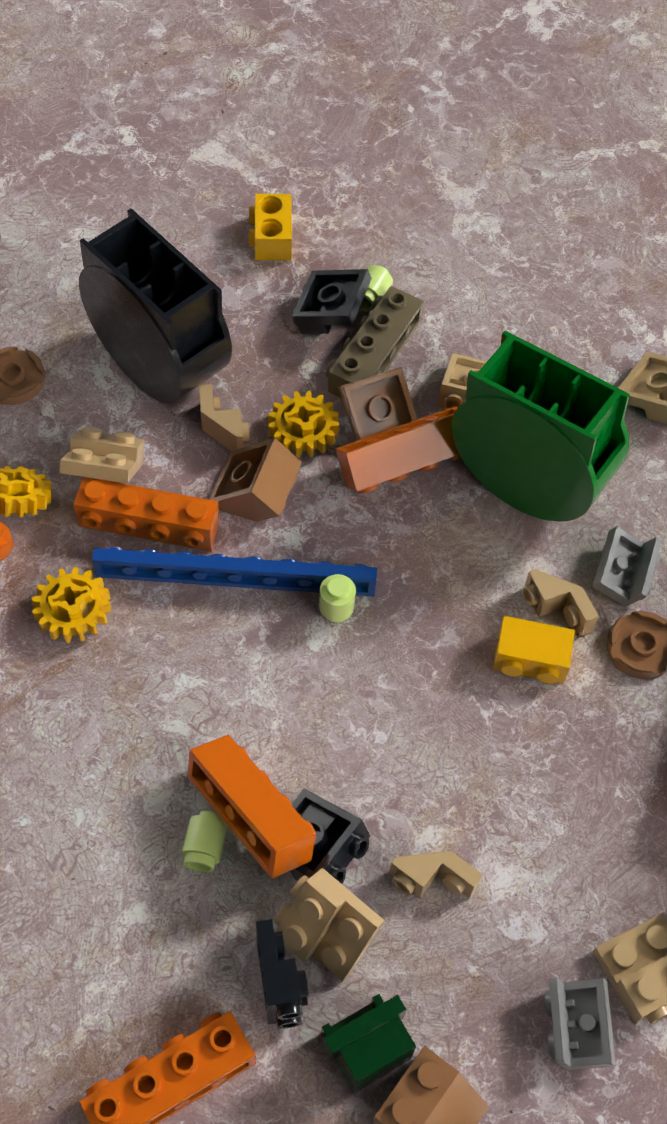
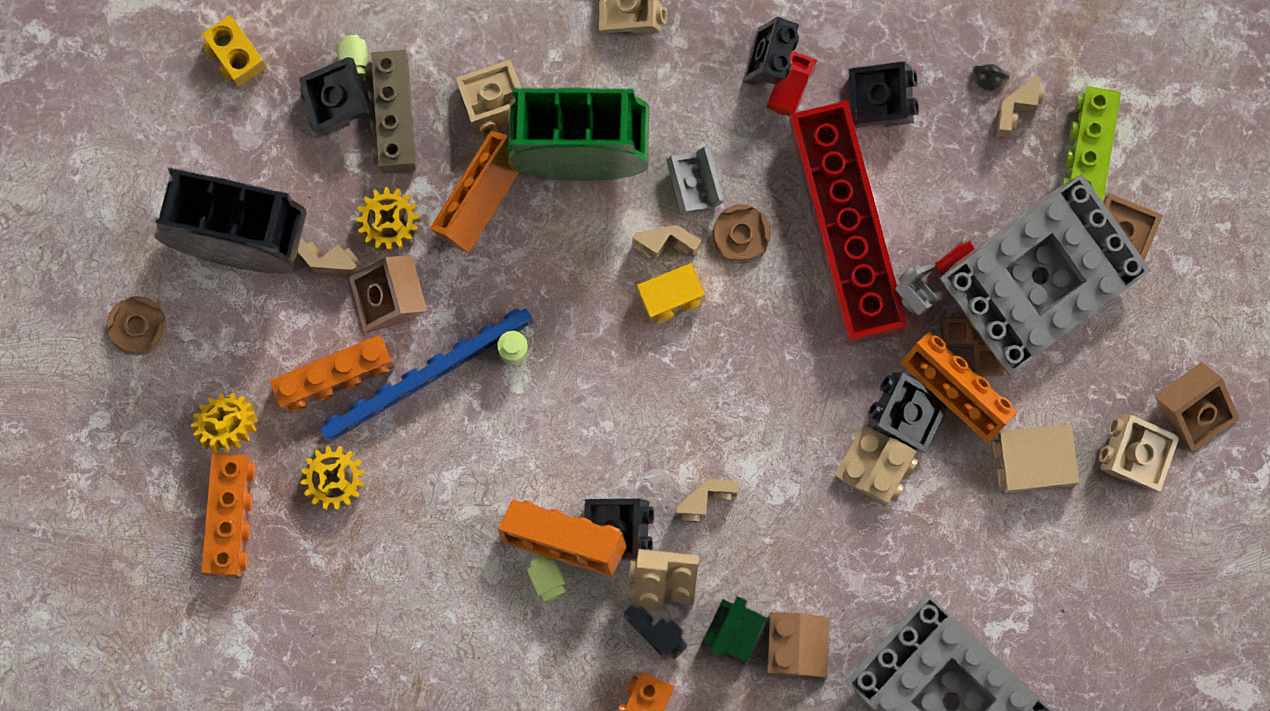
camera: 30 degrees left, 20 degrees up
(103, 455) = (267, 352): tan plate -> none
(377, 403) = (434, 168): medium nougat tile -> none
(580, 1024) = (853, 531): light grey bracket -> none

